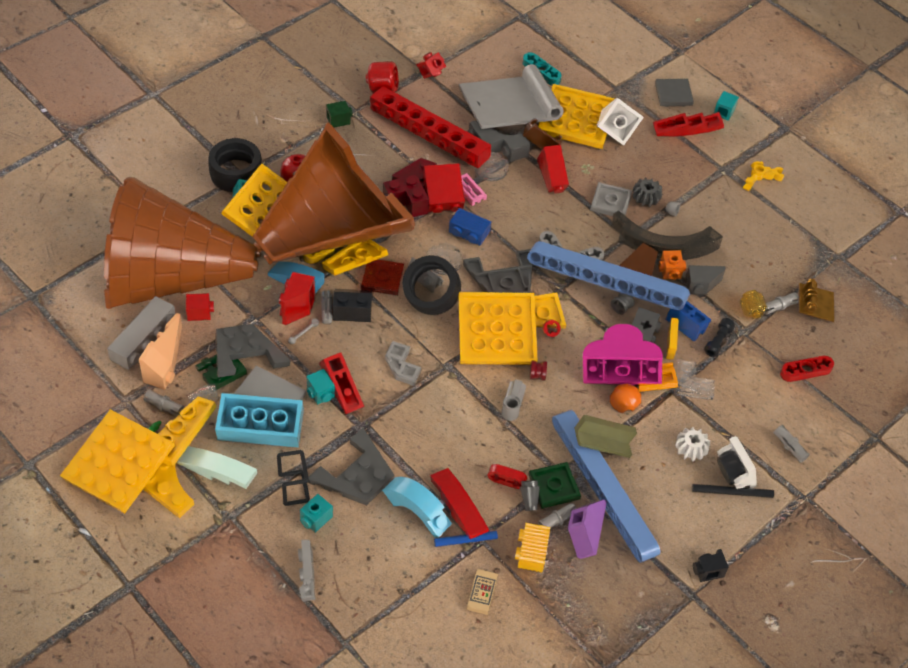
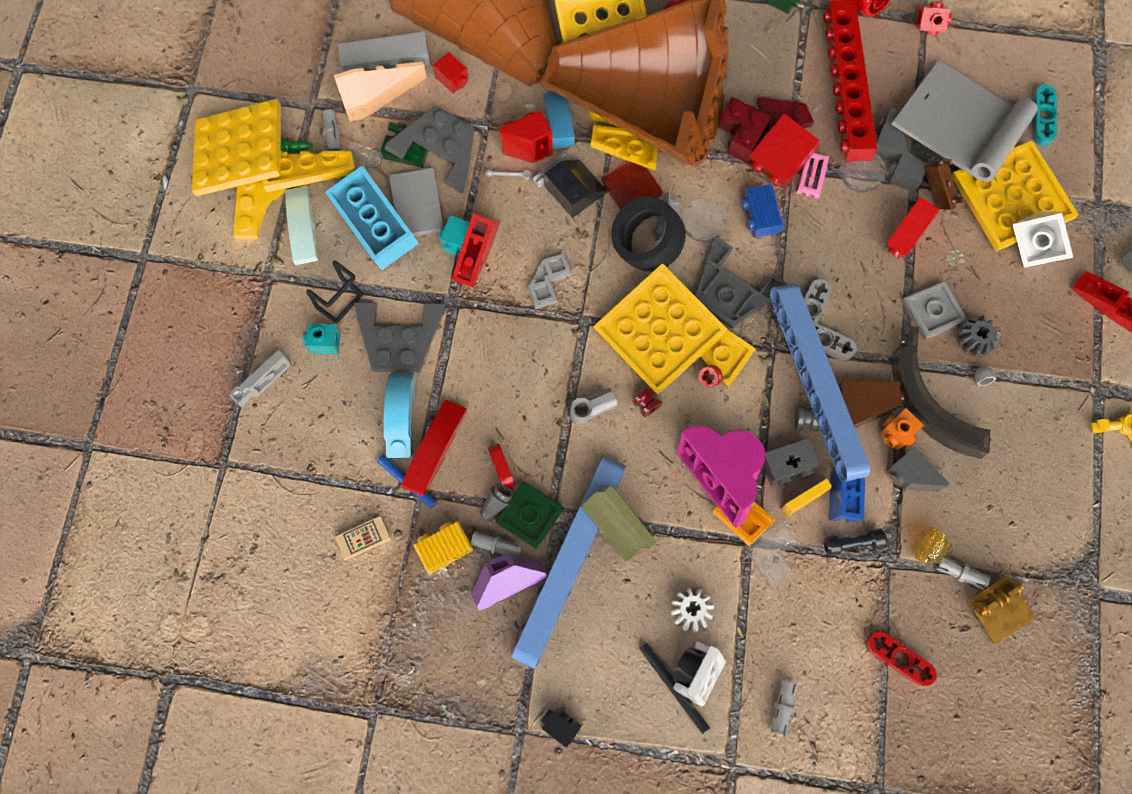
camera: 55 degrees right, 20 degrees up
(625, 398) = (692, 506): orange hair -> none

